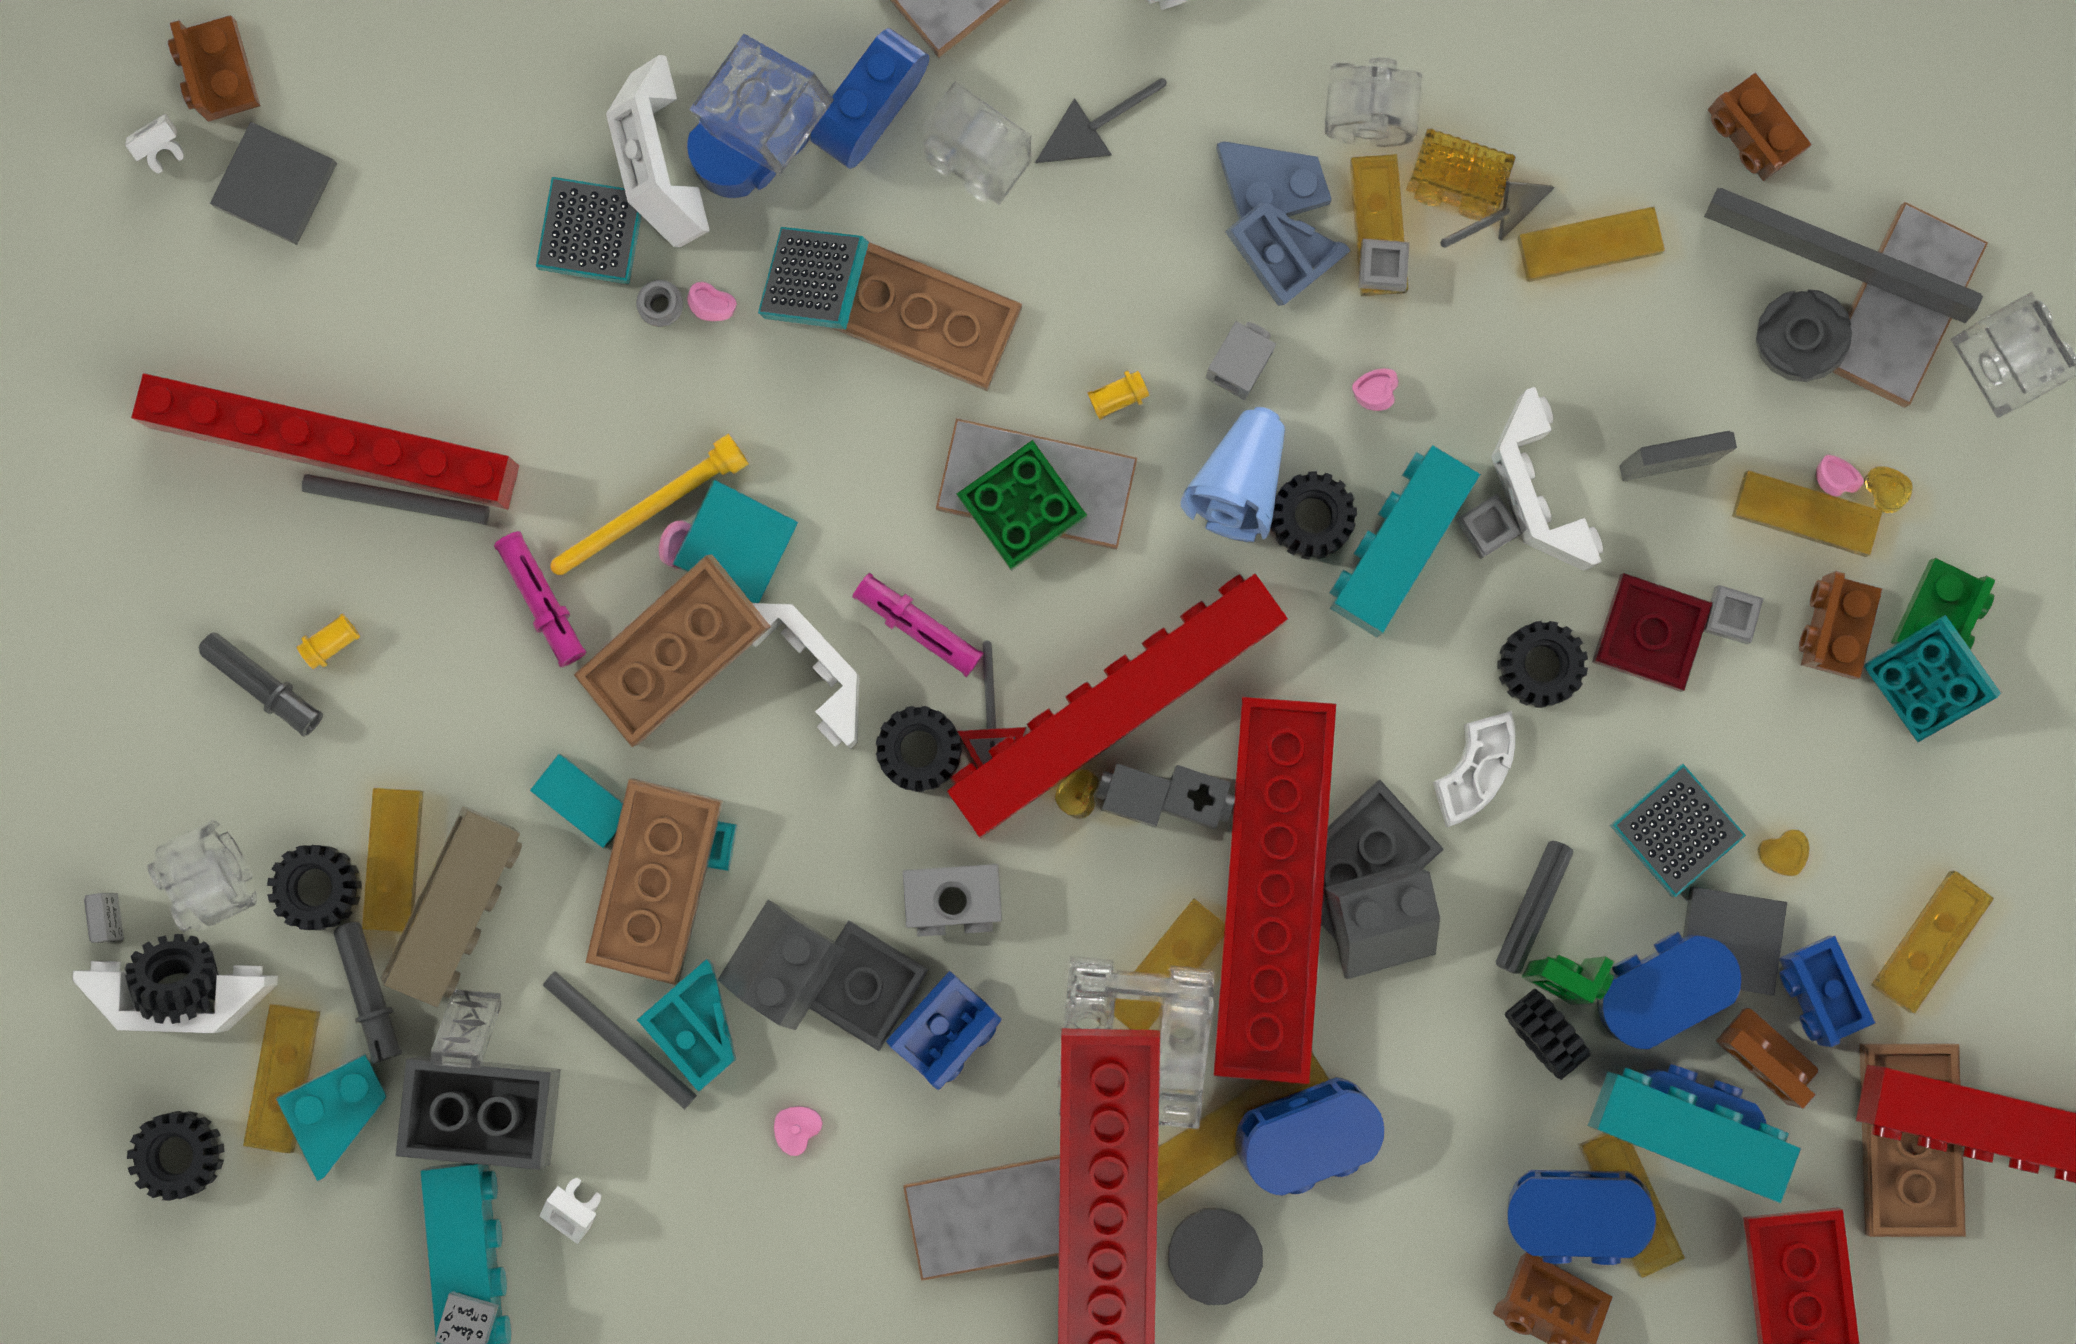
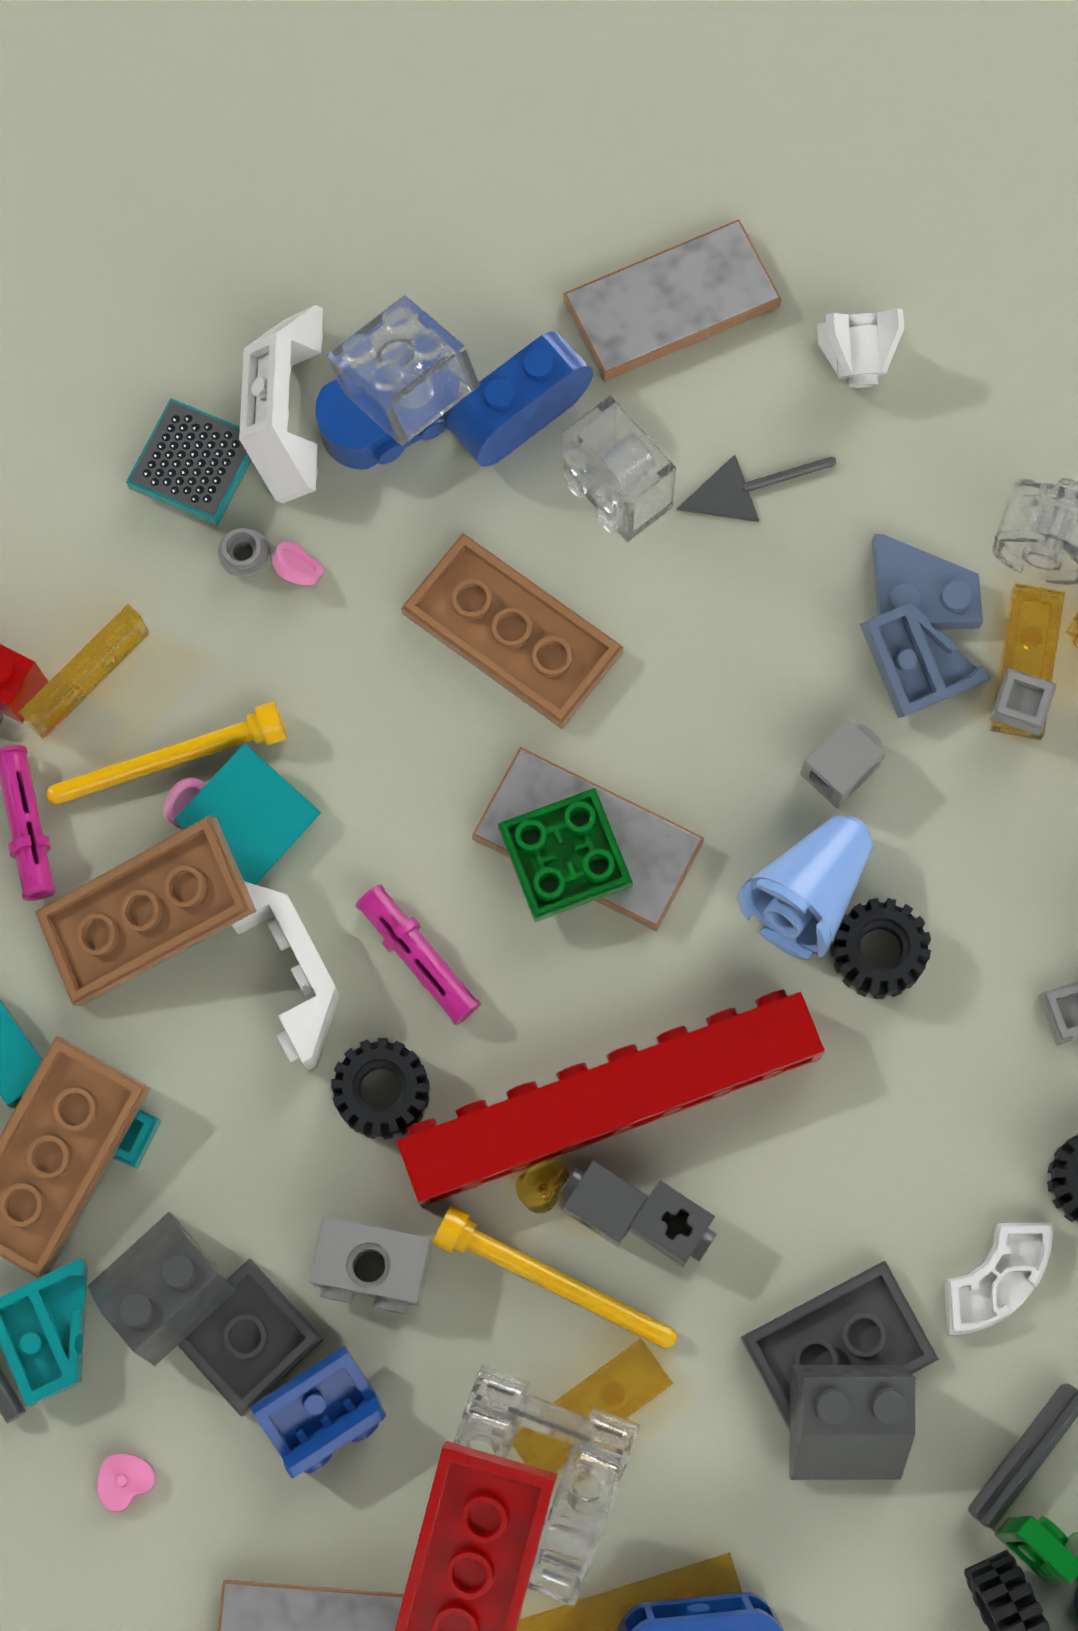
camera: 20 degrees right, 10 degrees down
(552, 450) = (84, 672): none -> clear yellow tile
(813, 277) = (409, 563): tile -> none
(981, 741) = (450, 1098): piece -> none
(1020, 853) = (461, 1234): none -> yellow piece
(1118, 394) = (701, 766): yellow pin -> none
(1275, 890) = (733, 1358): red plate -> none
(1376, 389) = (983, 831): bright pink piece -> none
(1404, 541) = (975, 1001): teal brick -> none

